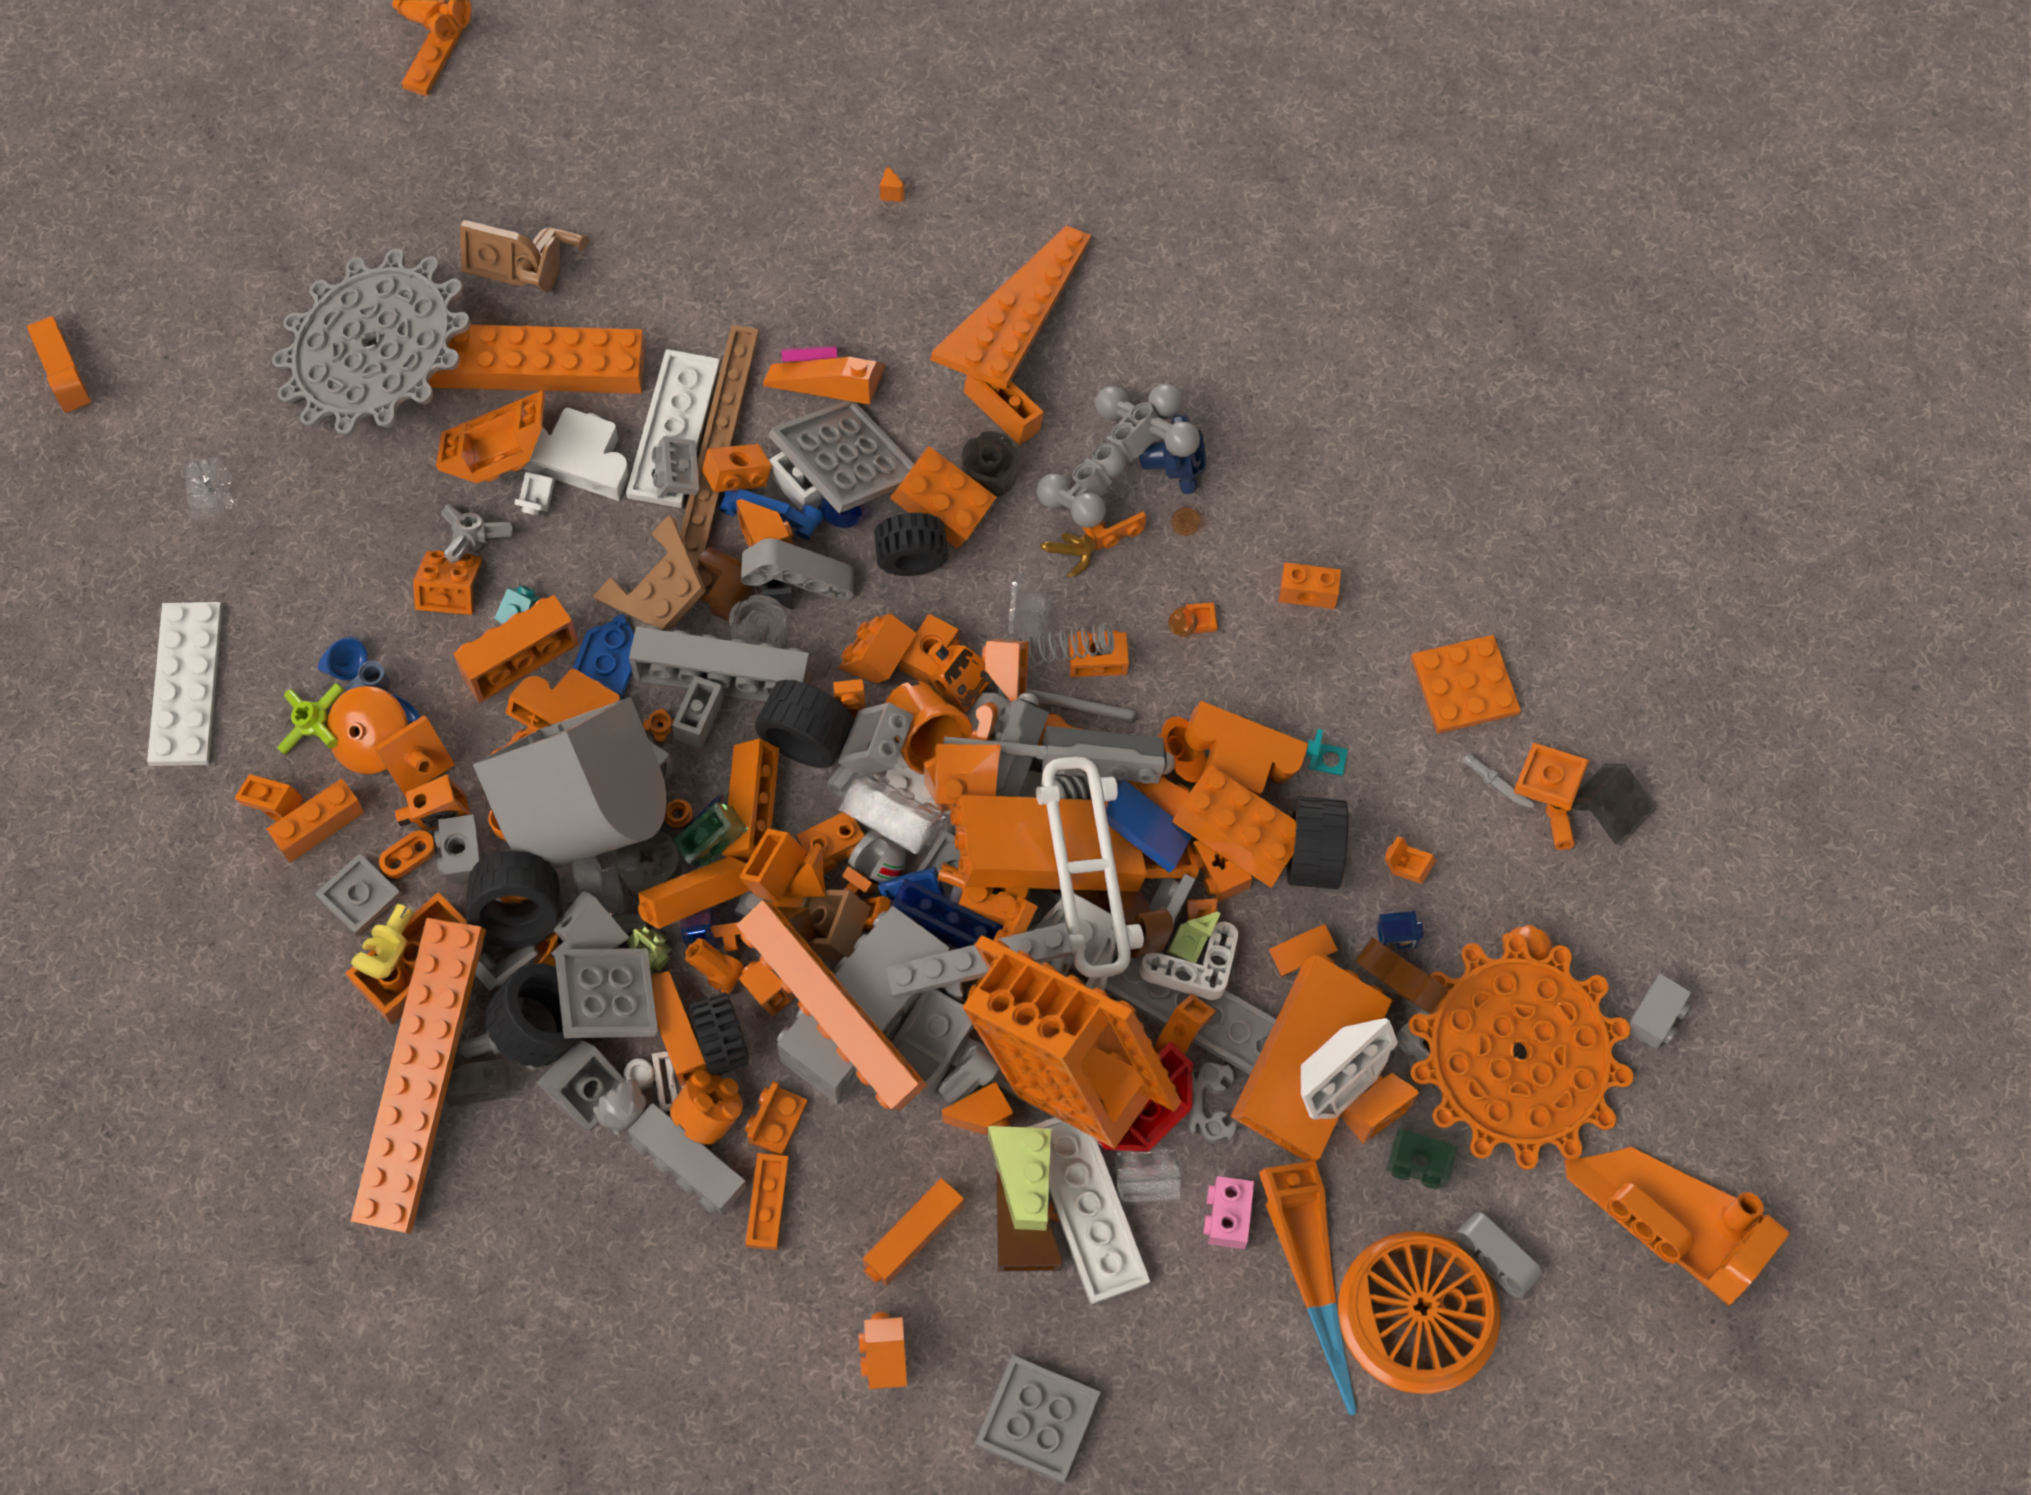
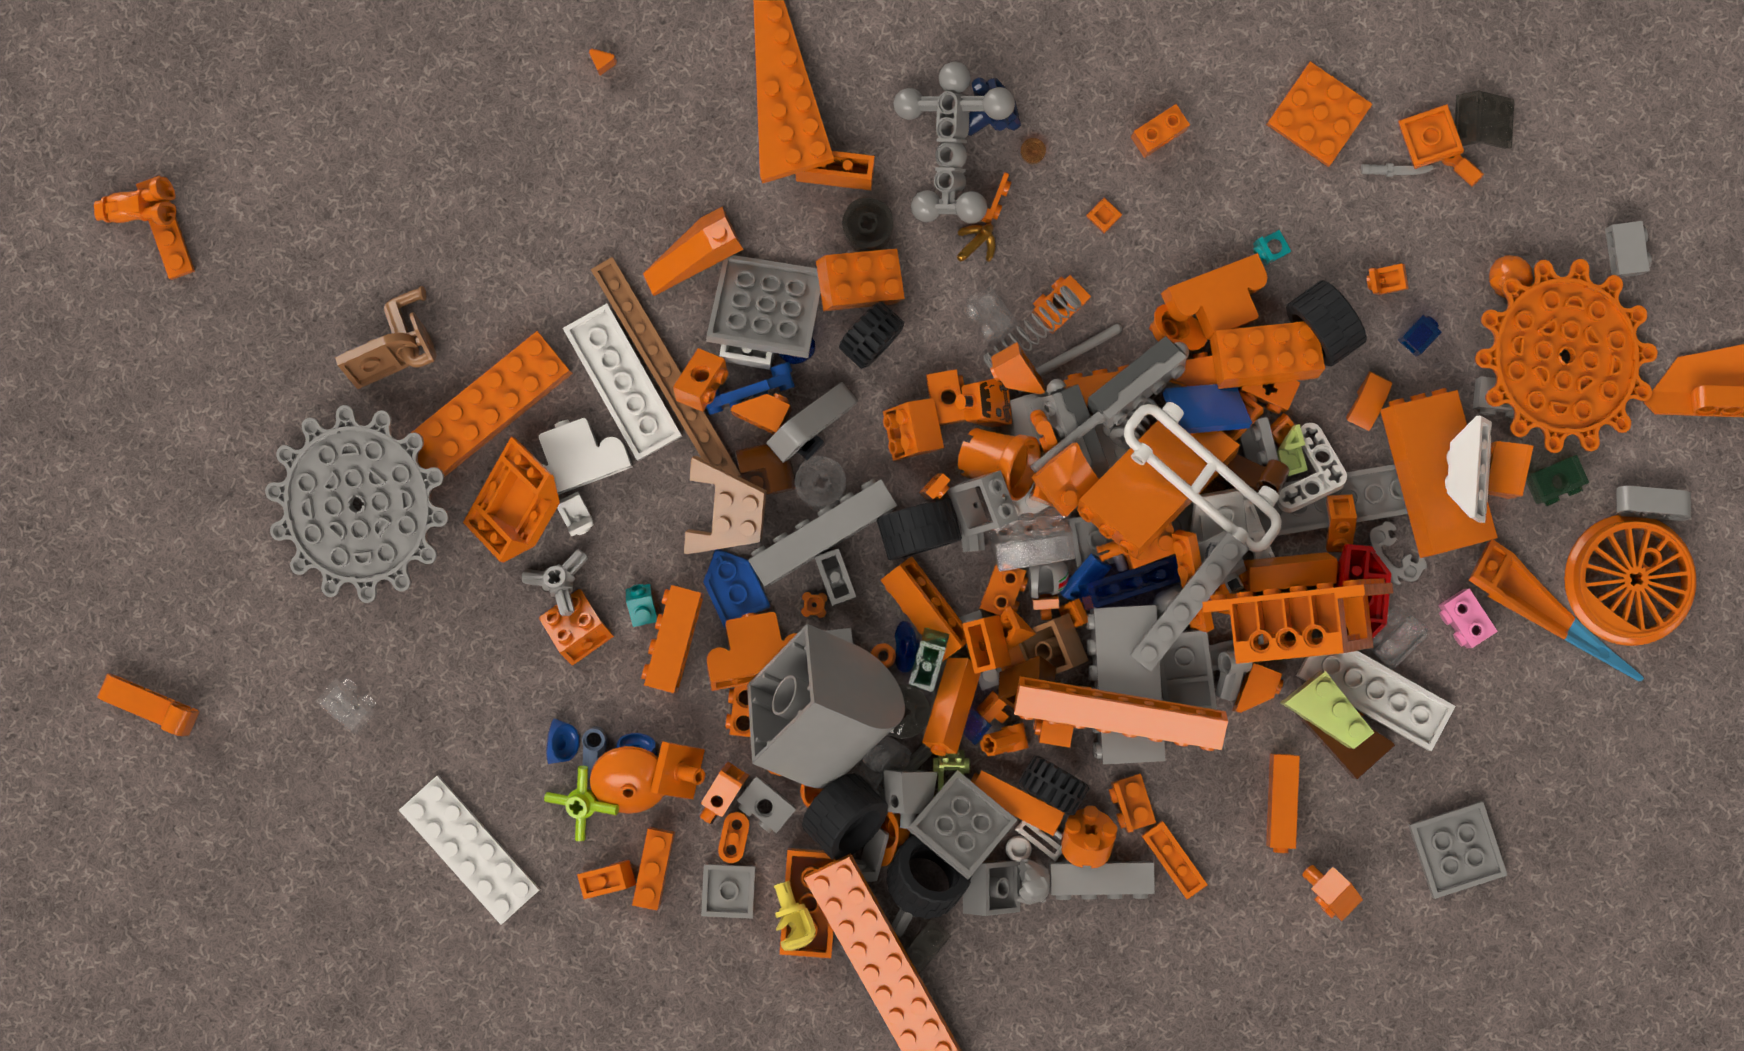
camera: 40 degrees left, 20 degrees up
(675, 466) = (656, 414): light grey bracket -> none
(808, 353) = (664, 244): dark pink tile -> none
(1182, 622) = (1096, 231): clear orange tile -> none
(1402, 976) = (1460, 372): reddish brown beam -> none

